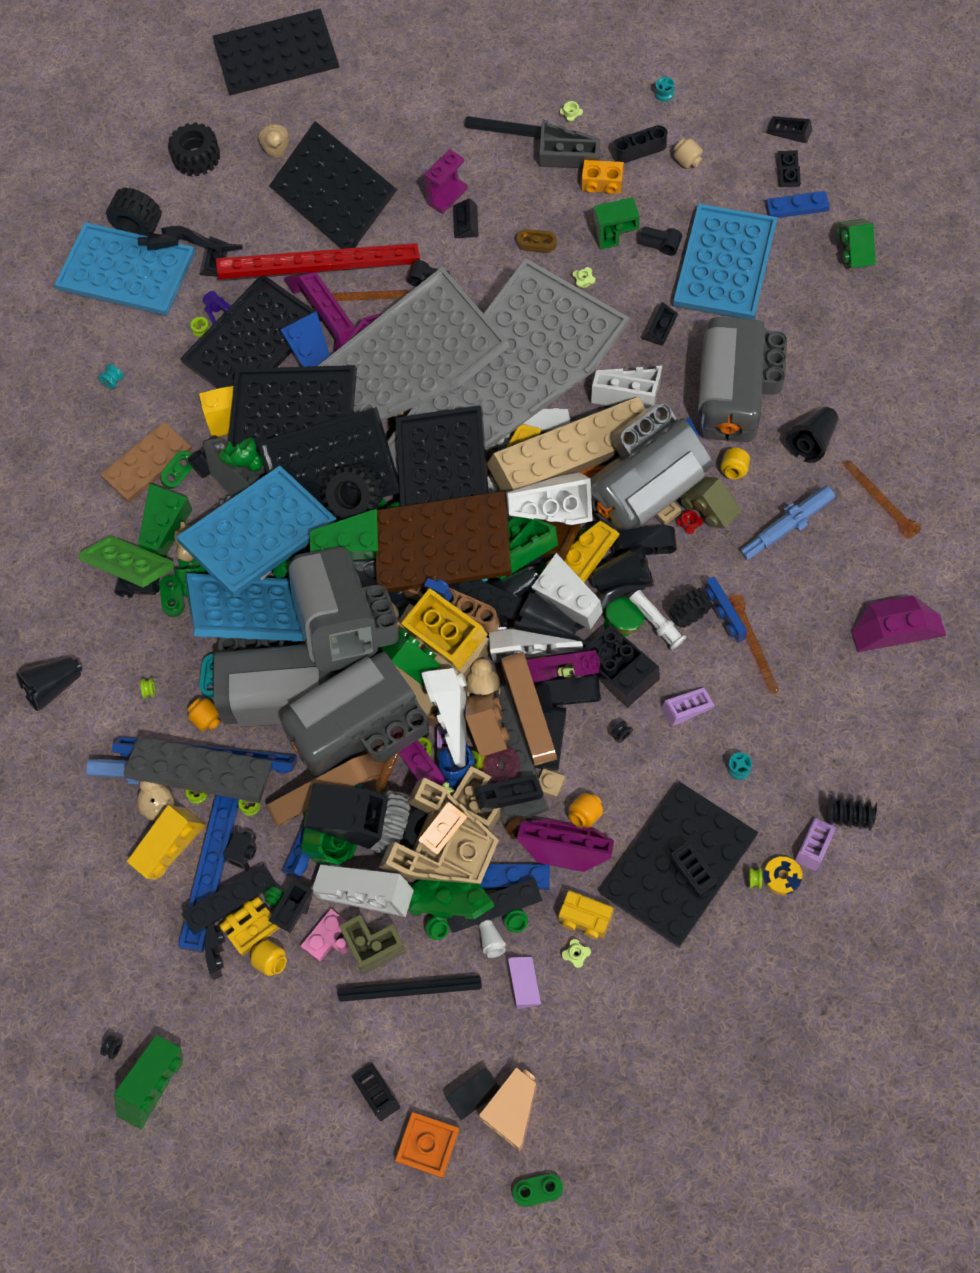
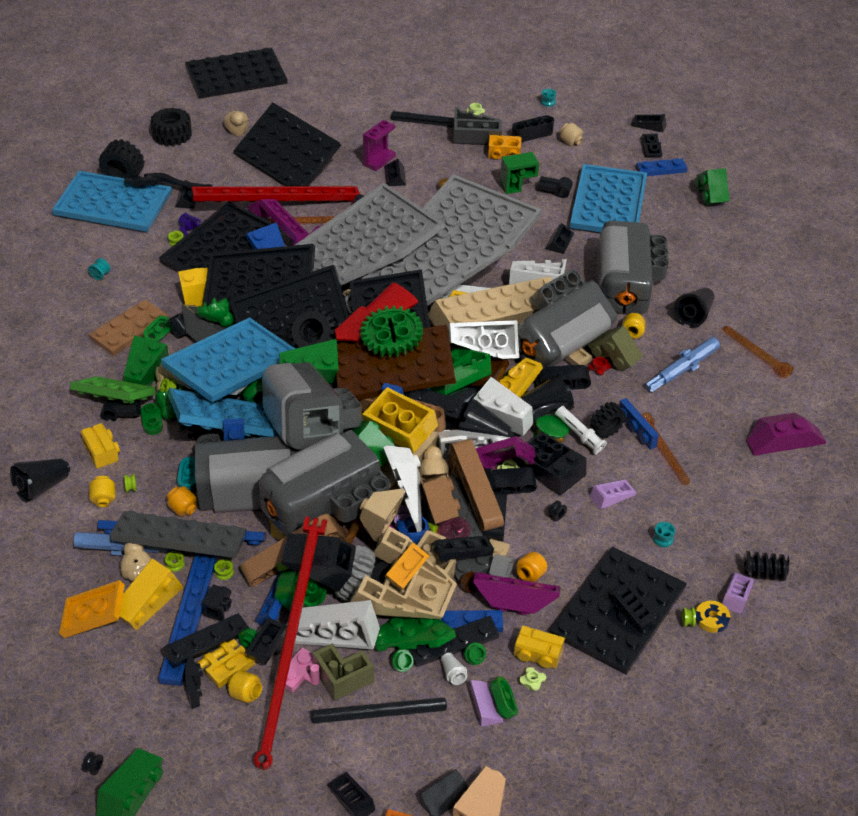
camera: 10 degrees left, 20 degrees down
(107, 860) = (92, 609): none -> light orange plate
(113, 635) = (100, 445): none -> yellow brick
(117, 700) = (102, 491): none -> yellow head
(187, 560) = (166, 384): none -> lime bush
(256, 638) = (233, 429): none -> blue plate
(313, 912) = (289, 641): none -> red hinge
(415, 753) = (380, 511): none -> tan slope
(417, 478) = (392, 295): none -> red panel
(418, 507) = (377, 333): none -> green gear
(543, 978) = (504, 698): none -> green plate
(552, 810) = (502, 565): none -> light grey slope

